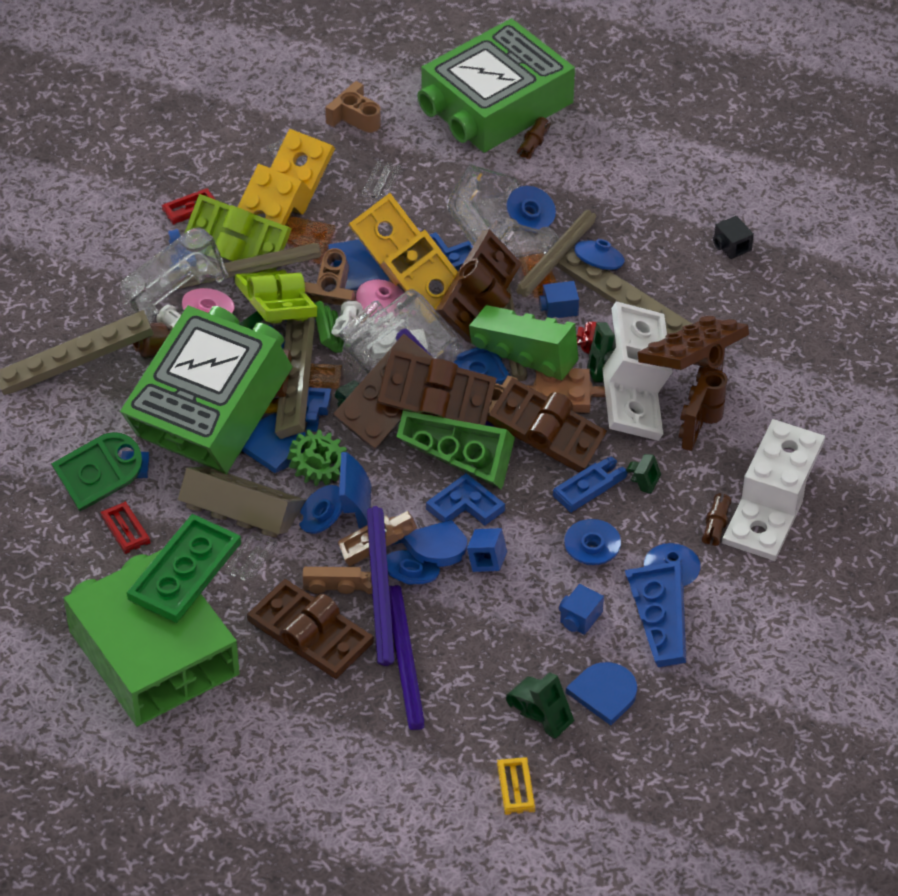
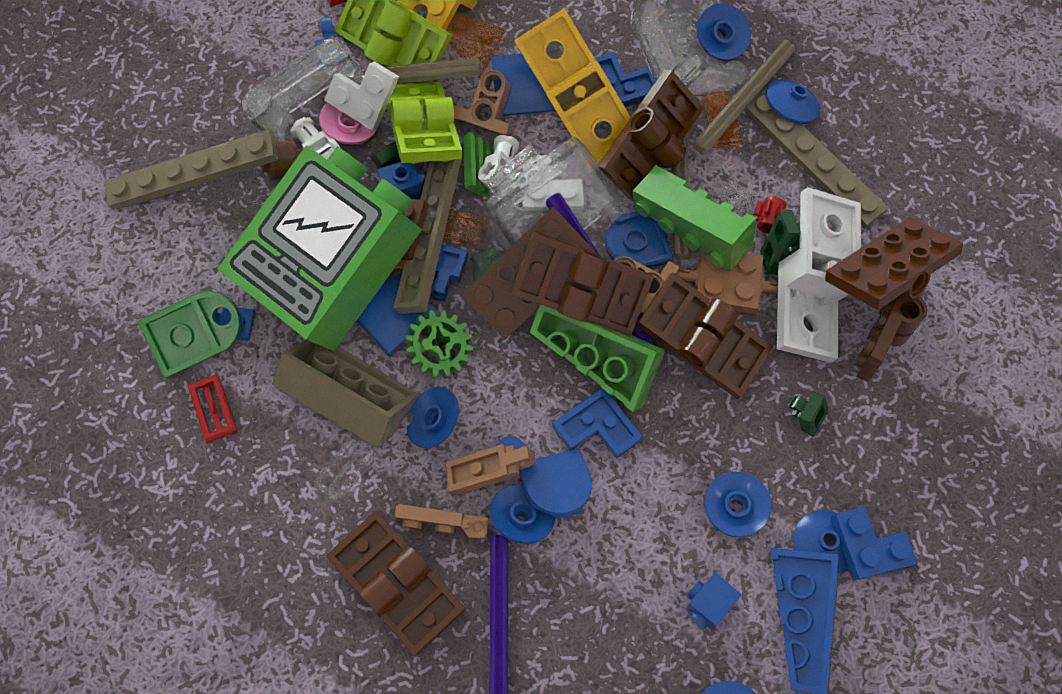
camera: 10 degrees right, 20 degrees up
(143, 655) = (204, 579): bright green brick -> none
(184, 568) = (247, 513): green plate -> none
(221, 286) = (364, 101): none -> white plate
(354, 489) = (471, 401): blue slope -> none
(378, 290) = (527, 129): bright pink dish -> none
(380, 586) = (481, 542): dark purple axle -> none
(487, 550) = (613, 503): blue brick -> none
(559, 300) = (740, 158): blue brick -> none
(589, 484) = (742, 418): blue hinge -> none
(708, 565) = (865, 552): none -> blue plate
(716, 519) = (886, 487): reddish brown pin -> none
(733, 237) = (948, 95): black brick -> none
(773, 489) = (962, 460): white bracket -> none

